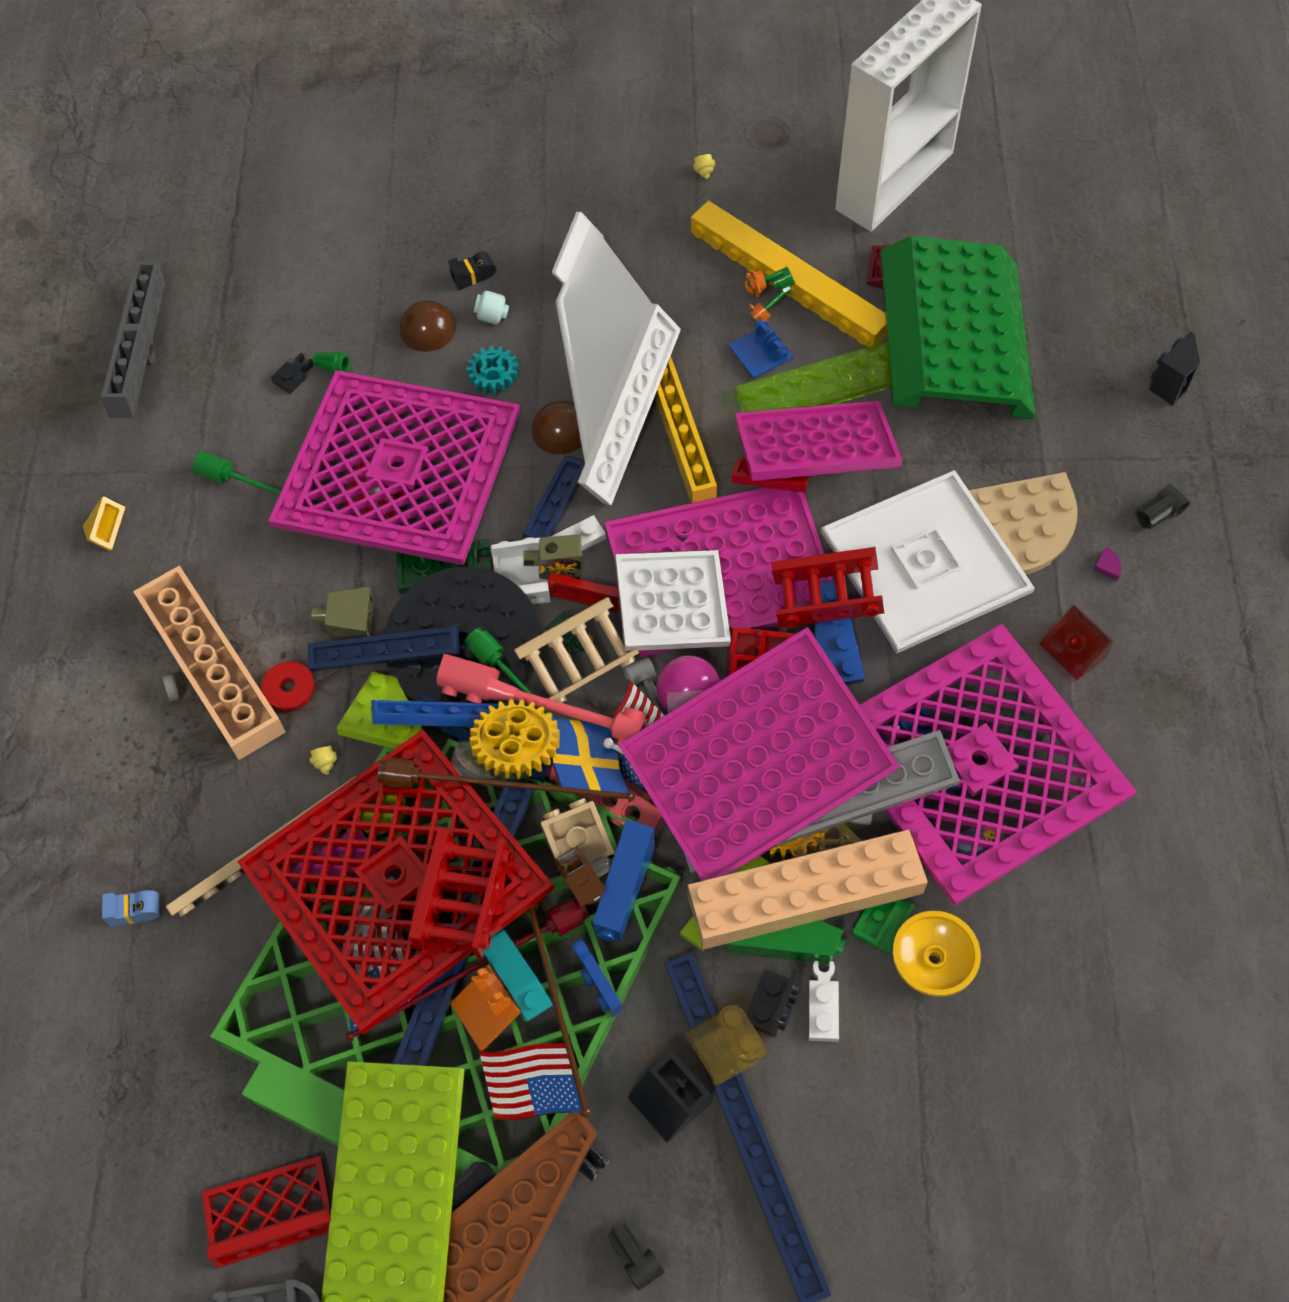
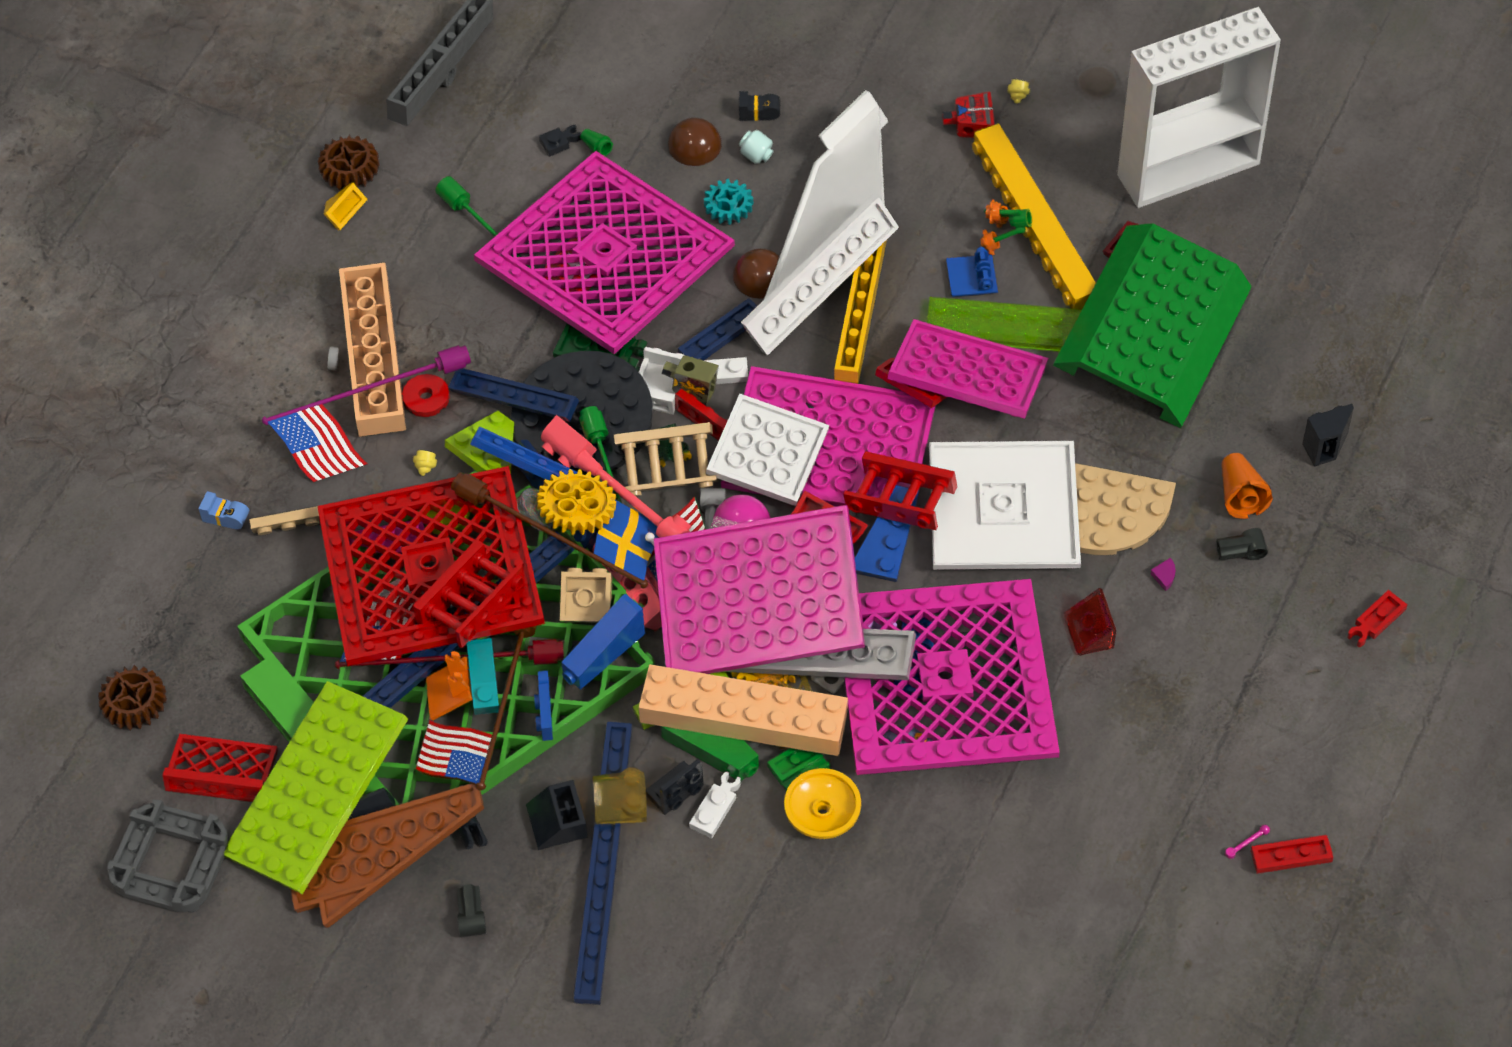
camera: 25 degrees right, 5 degrees down
(87, 477) = (348, 162): none -> reddish brown gear
(120, 1185) = (139, 686): none -> reddish brown gear
(200, 784) = (319, 440): none -> flag
(346, 613) = (501, 355): olive torso -> none
(583, 875) = (571, 623): reddish brown piece -> none
(676, 203) = (970, 114): none -> red torso
(1131, 449) = (1244, 487): none -> orange cone

